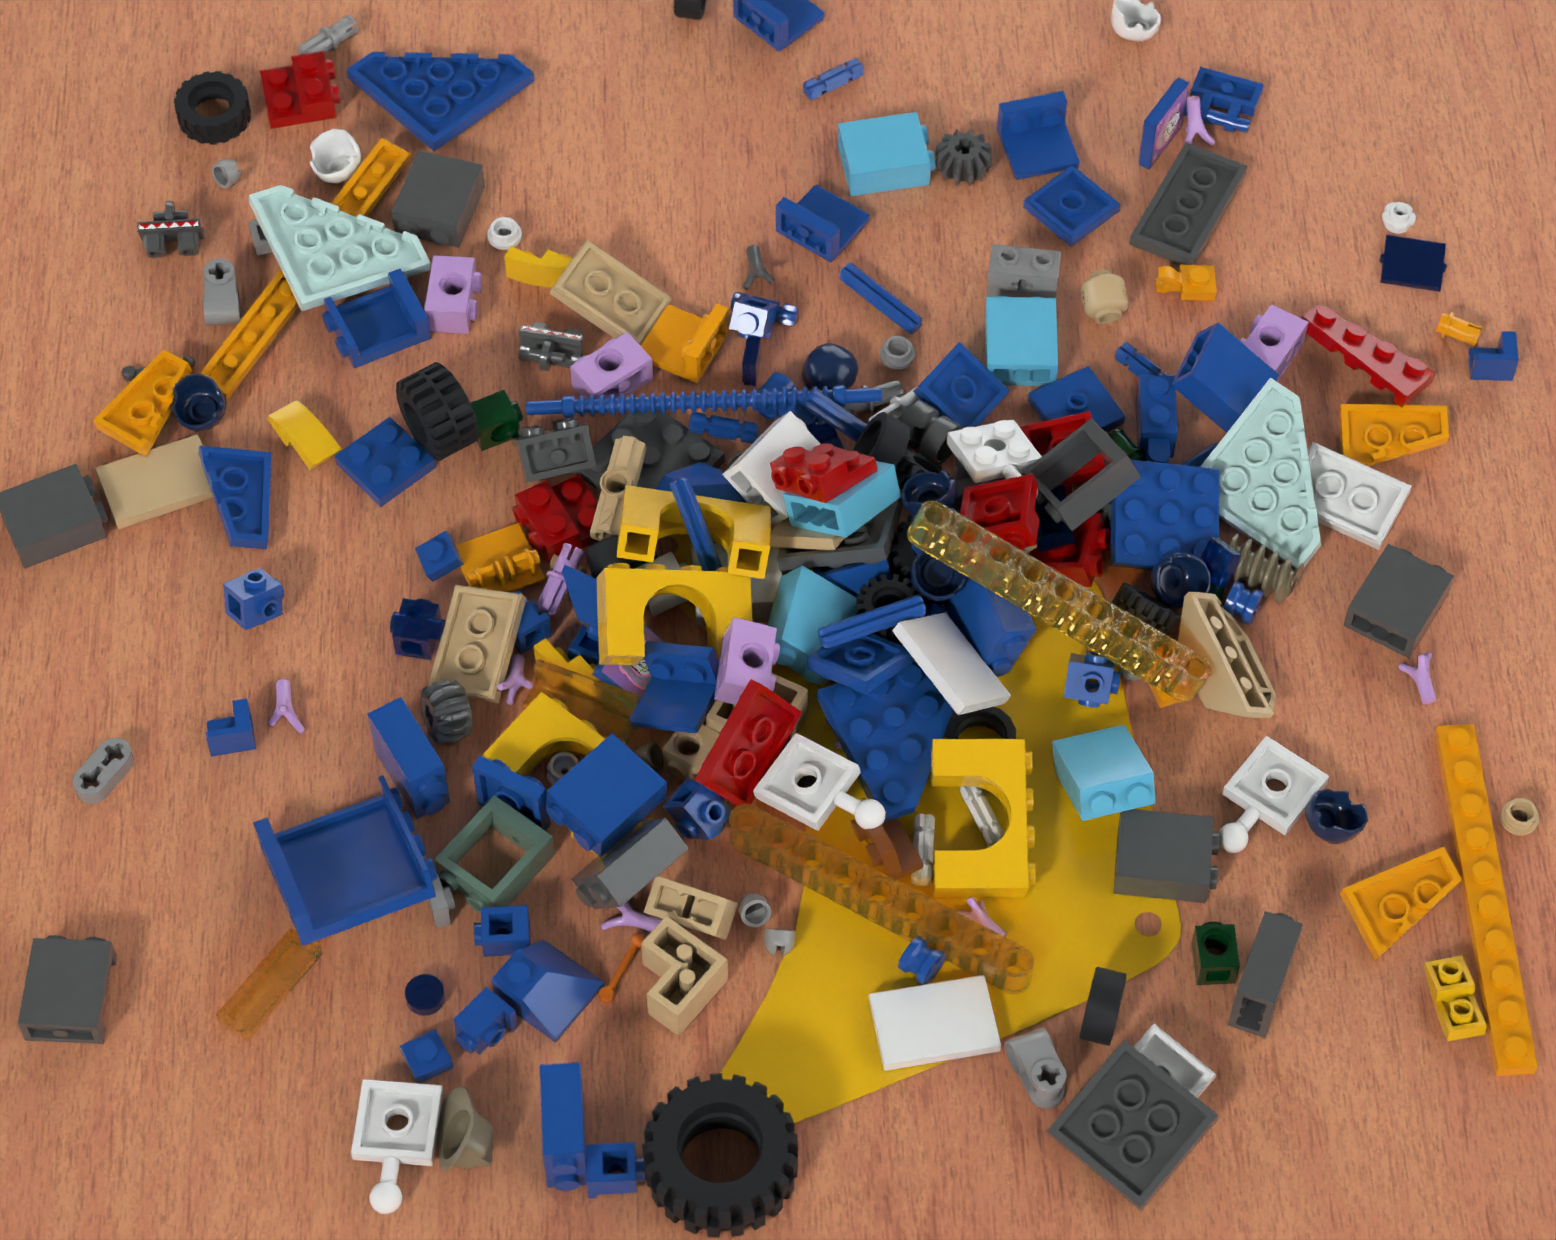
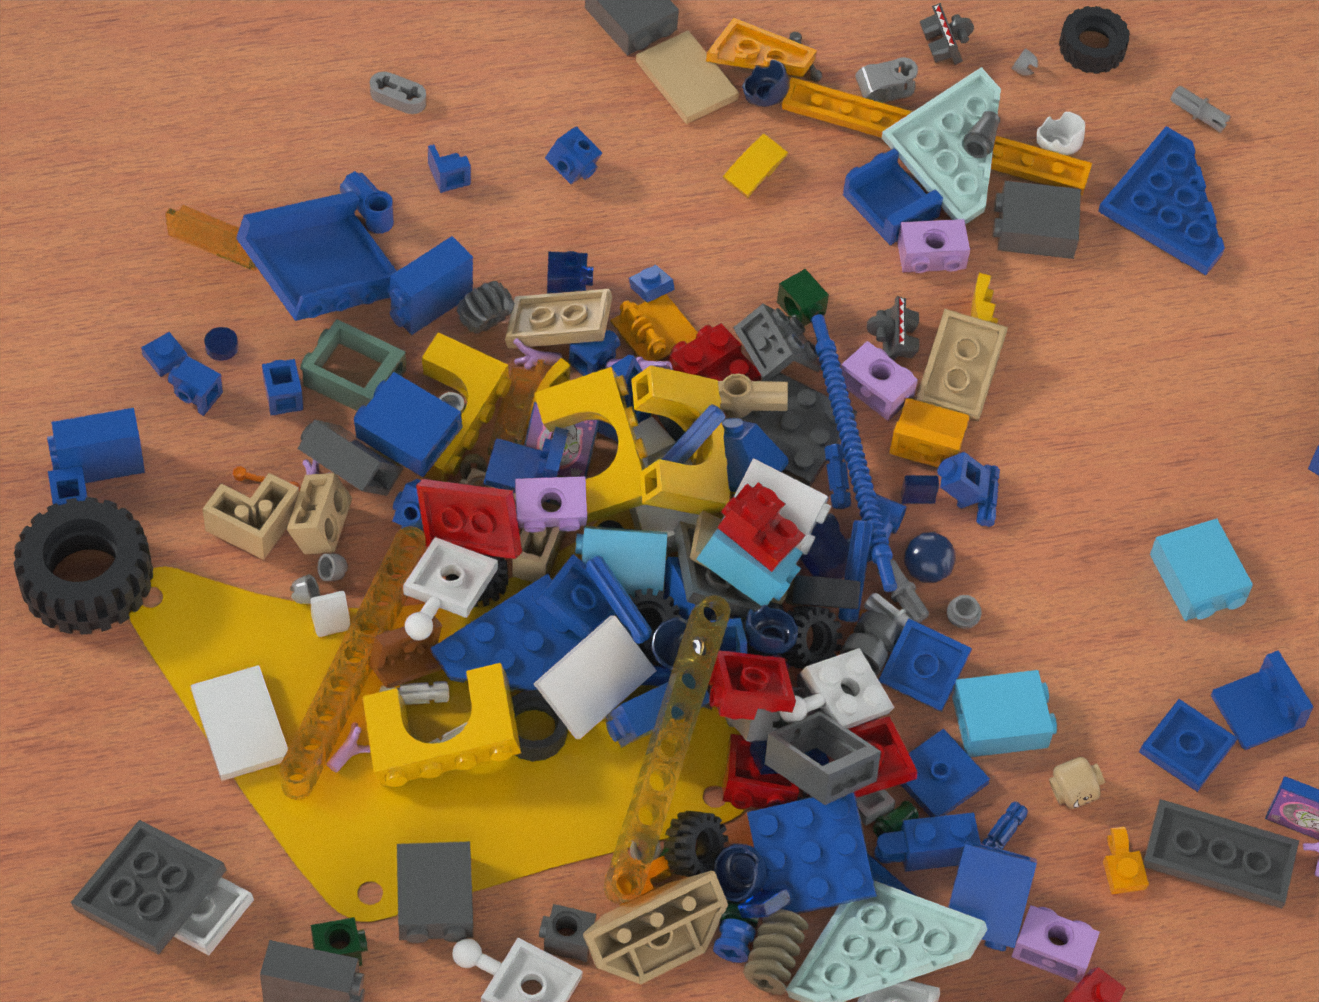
camera: 75 degrees right, 0 degrees up
(66, 990) = (191, 101): dark grey panel -> none
(240, 820) = (373, 205): none -> blue piece
(241, 492) = (685, 132): blue wing -> none
(284, 706) = (480, 201): lavender bar -> none
(300, 91) = (1134, 100): red plate -> none
(341, 211) = (981, 137): none -> dark grey cone
(385, 461) = (745, 231): blue plate -> none
(410, 1145) = (80, 330): white plate -> none
(437, 411) = (788, 244): black tyre -> none
(441, 904) = (304, 334): light grey plate -> none
(463, 1133) = (85, 391): dark tan piece -> none
(501, 227) = (1017, 271): white plate -> none
(521, 793) = (409, 353): blue plate -> none
(545, 987) = (237, 424): blue slope -> none
(756, 267) = (1036, 482): dark grey bar -> none
(814, 917) = (330, 613): none -> white slope
(820, 222) = (1102, 527): blue bracket -> none
(833, 79) = (1287, 518): blue axle -> none
(880, 298) = (1027, 590): blue axle -> none
(921, 960) = (295, 701): blue wheel -> none
(963, 157) = (1218, 639): dark grey gear -> none
(1022, 272) = (1084, 706): light grey brick -> none
(1038, 1067) = (204, 807): light grey piece -> none
(1087, 691) = (609, 805): blue brick -> none
(1103, 772) = (506, 823): medium azure brick -> none
(1103, 1006) = (262, 847): black tyre -> none
(1221, 729) = (566, 946): none -> dark grey brick

